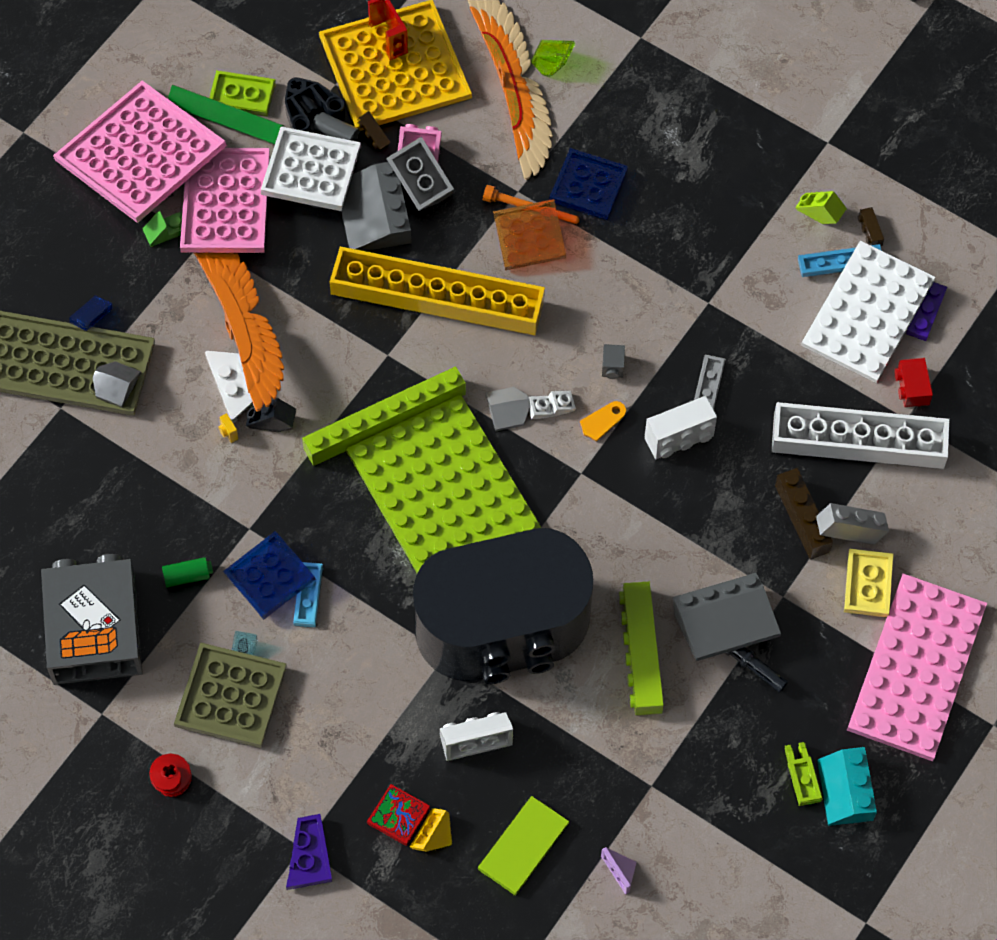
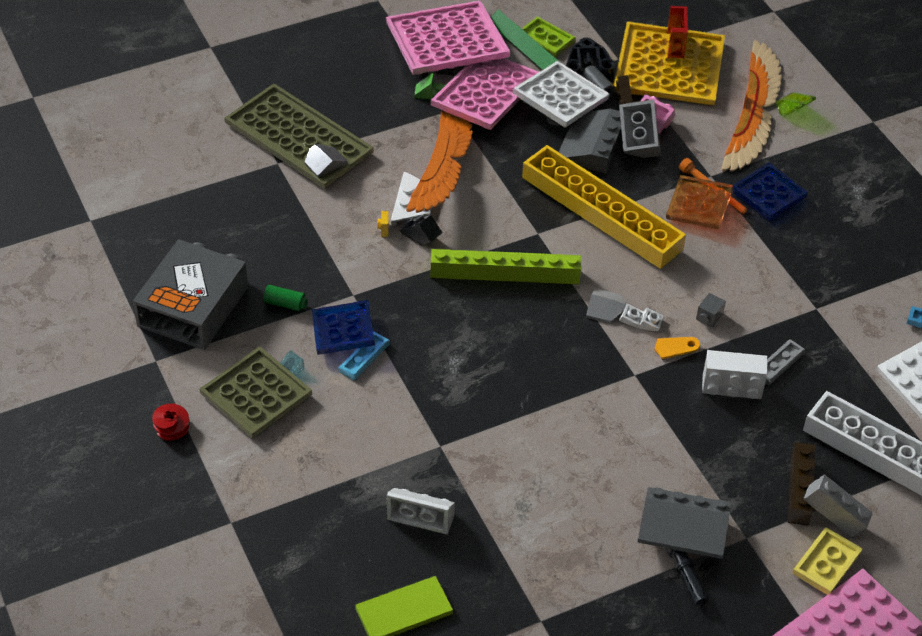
camera: 30 degrees right, 15 degrees down
(90, 313) = (340, 114): clear blue tile -> none
(309, 855) = (231, 530): dark purple wing -> none
(398, 815) = (321, 536): tile -> none
(434, 832) = (340, 563): yellow slope -> none
(440, 482) = (517, 338): lime plate -> none
(503, 605) = (502, 421): black brick -> none
(642, 648) = (599, 515): lime brick -> none

